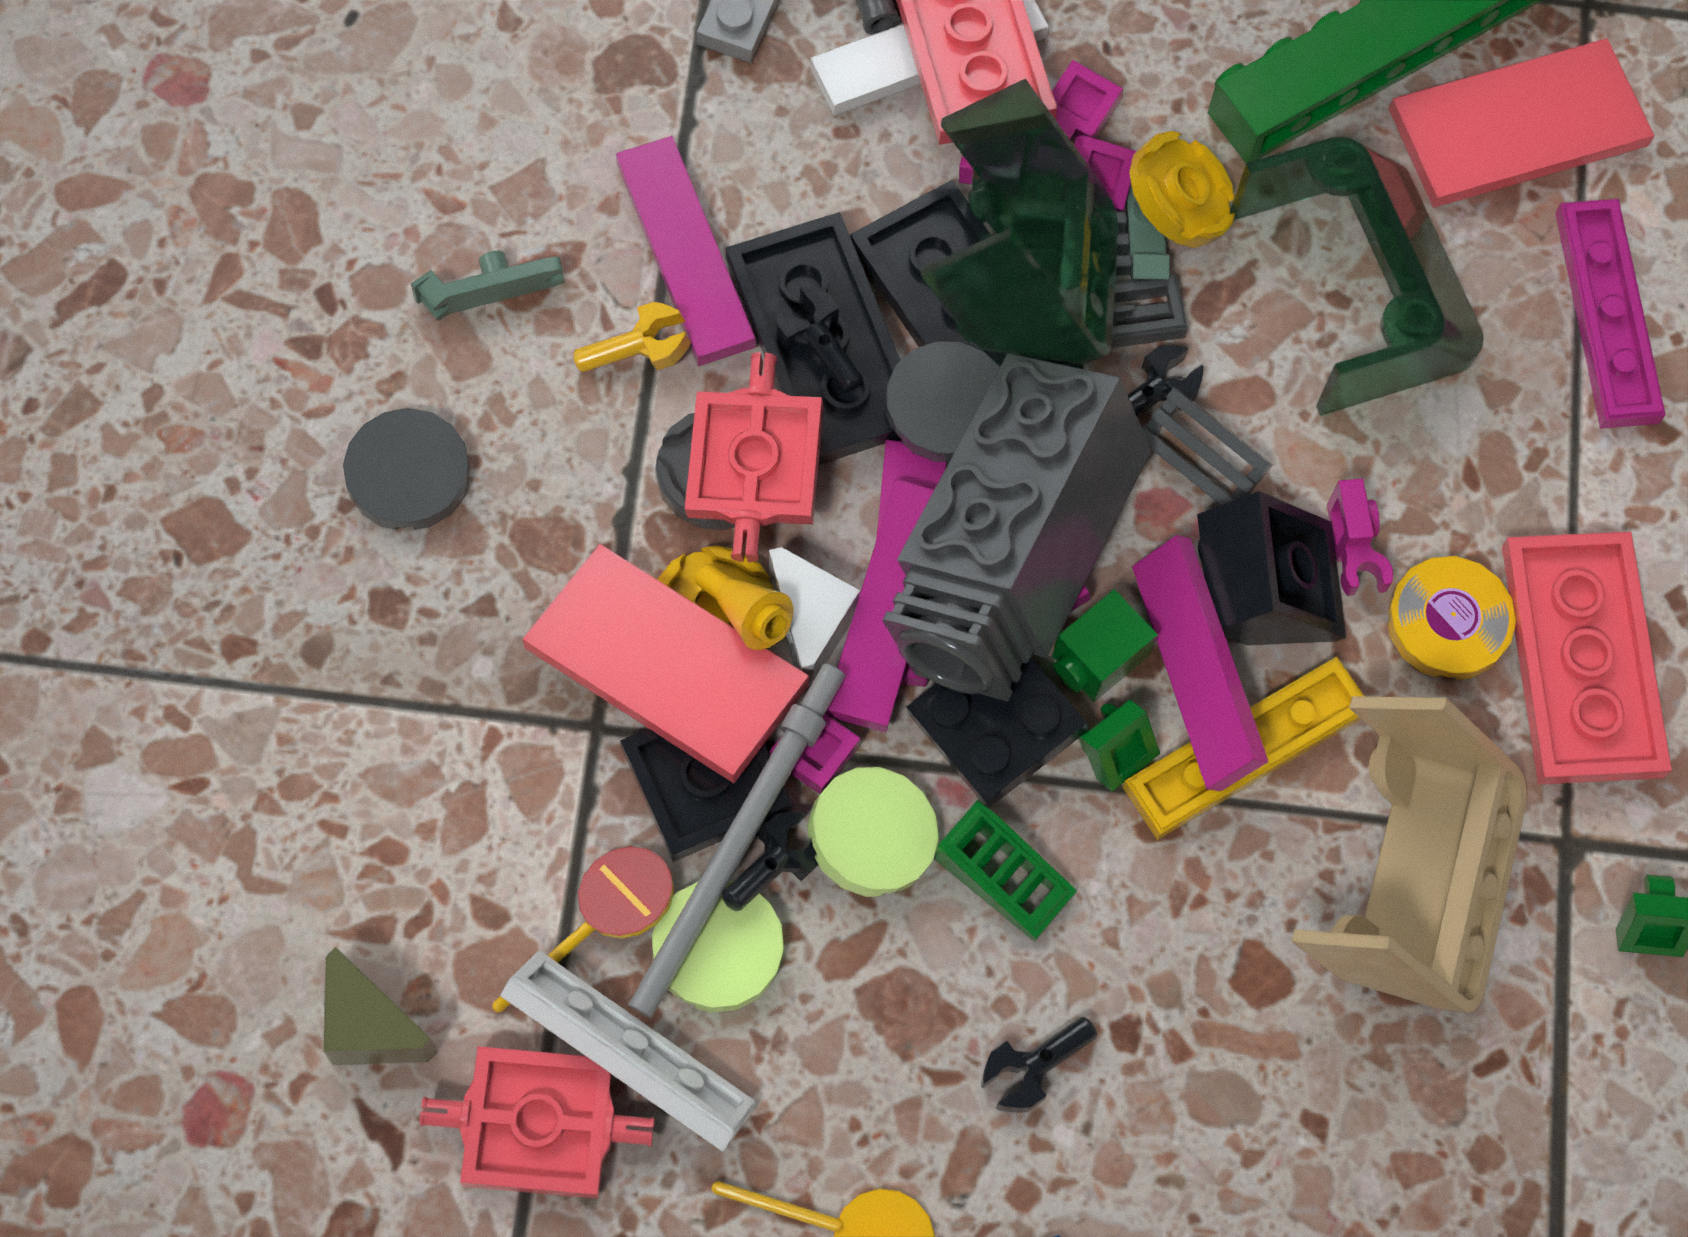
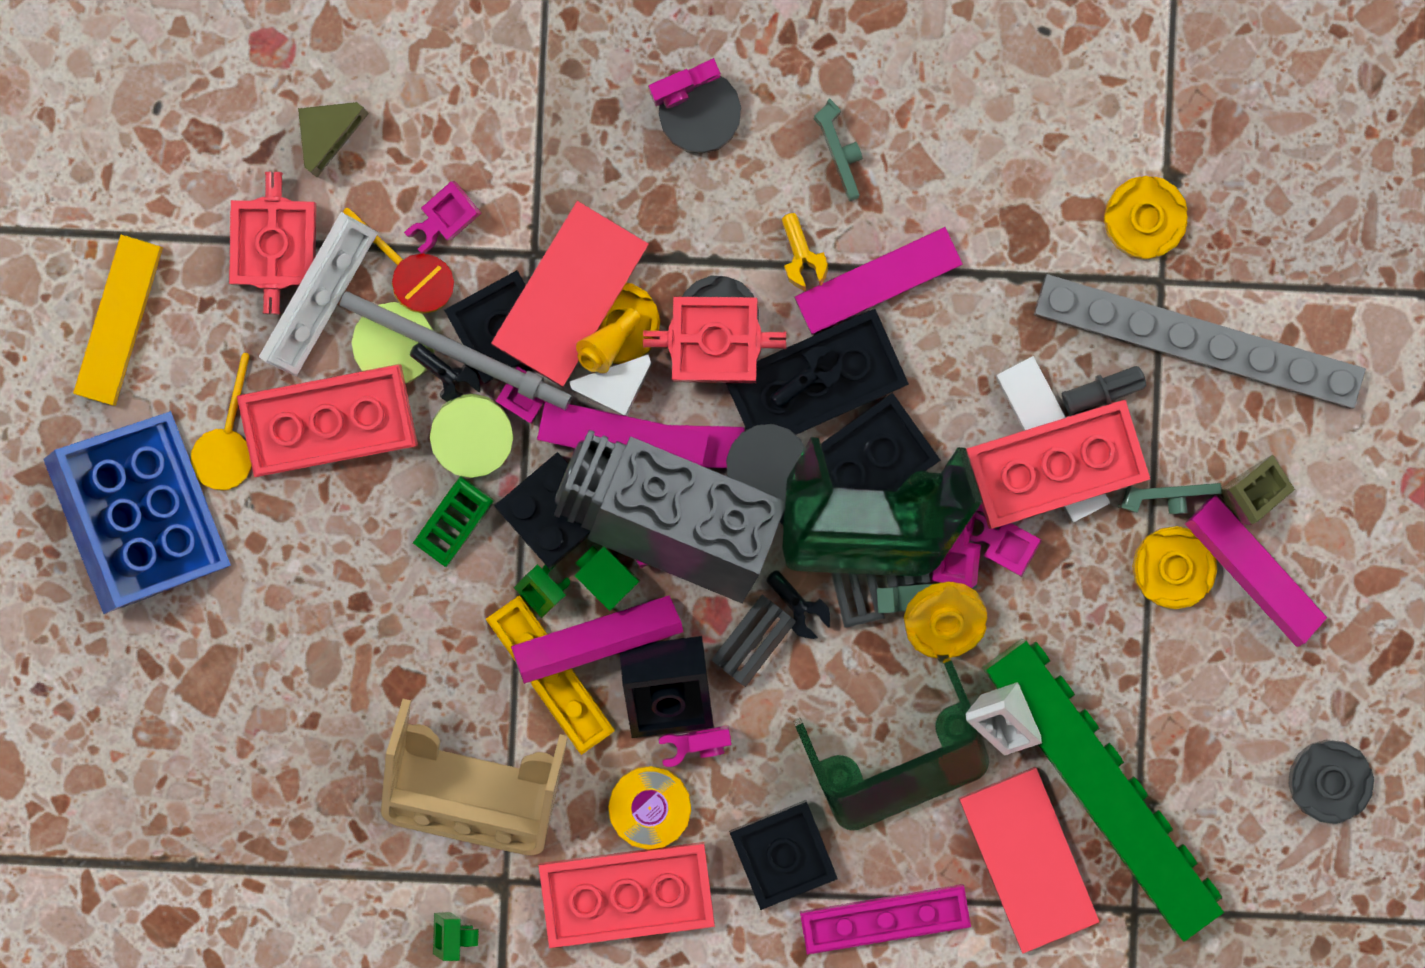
camera: 90 degrees right, 20 degrees up
(370, 485) = (674, 88): none -> dark pink plate
(519, 842) = (447, 214): none -> dark pink plate
(833, 1056) = (327, 420): none -> coral tile
(1036, 1064) = (334, 546): black bar -> none
(1326, 107) = (1005, 719): none -> white slope
(1520, 434) = (783, 855): none -> black plate

